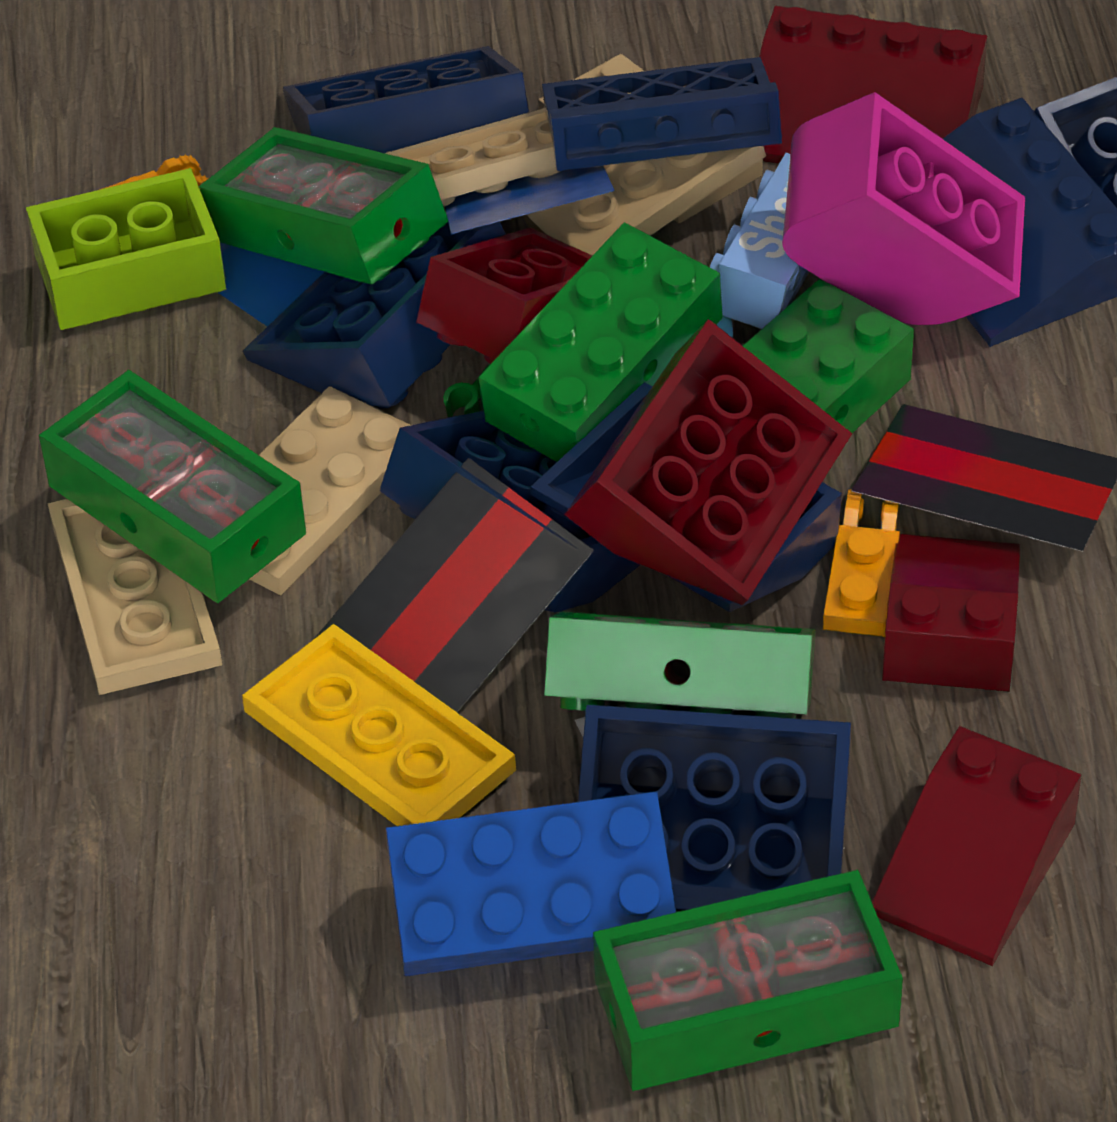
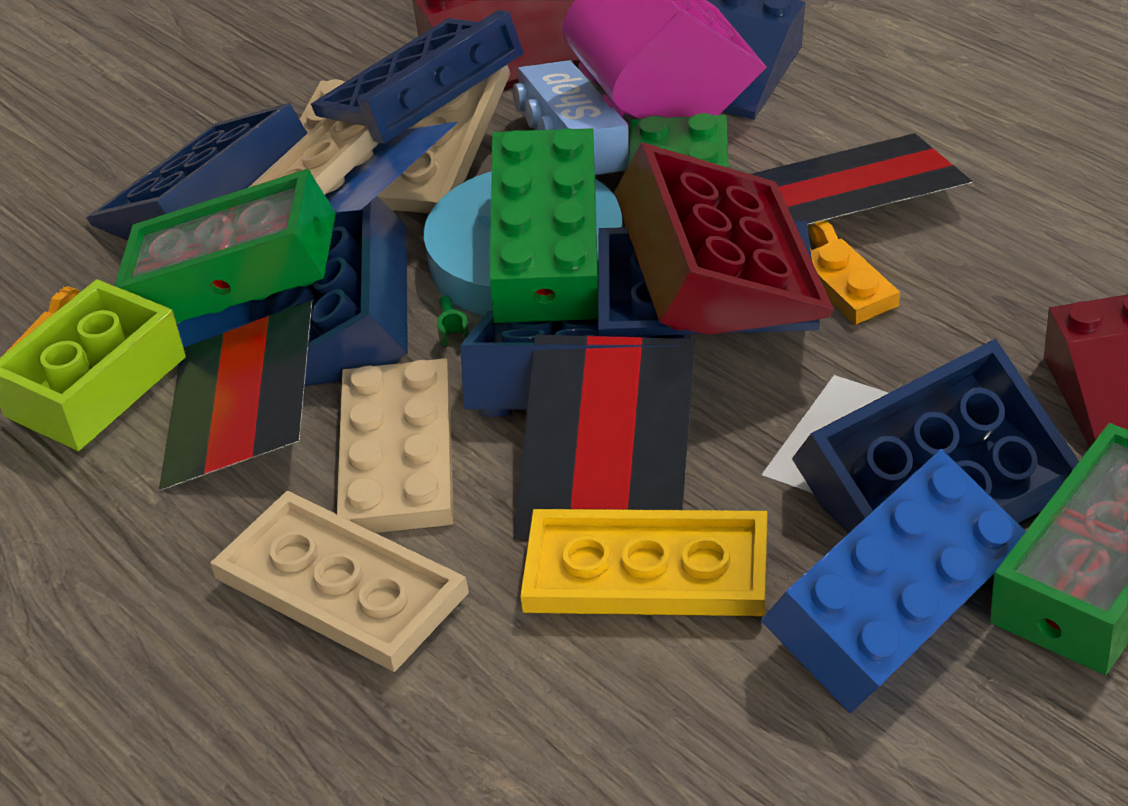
camera: 35 degrees left, 5 degrees down
(173, 485) = (321, 480): brick -> none
(236, 345) = (238, 396): none -> black sticker
(495, 288) = (437, 233): dark red slope -> none
(633, 659) = (825, 381): brick -> none
(952, 612) = (940, 262): dark red slope -> none

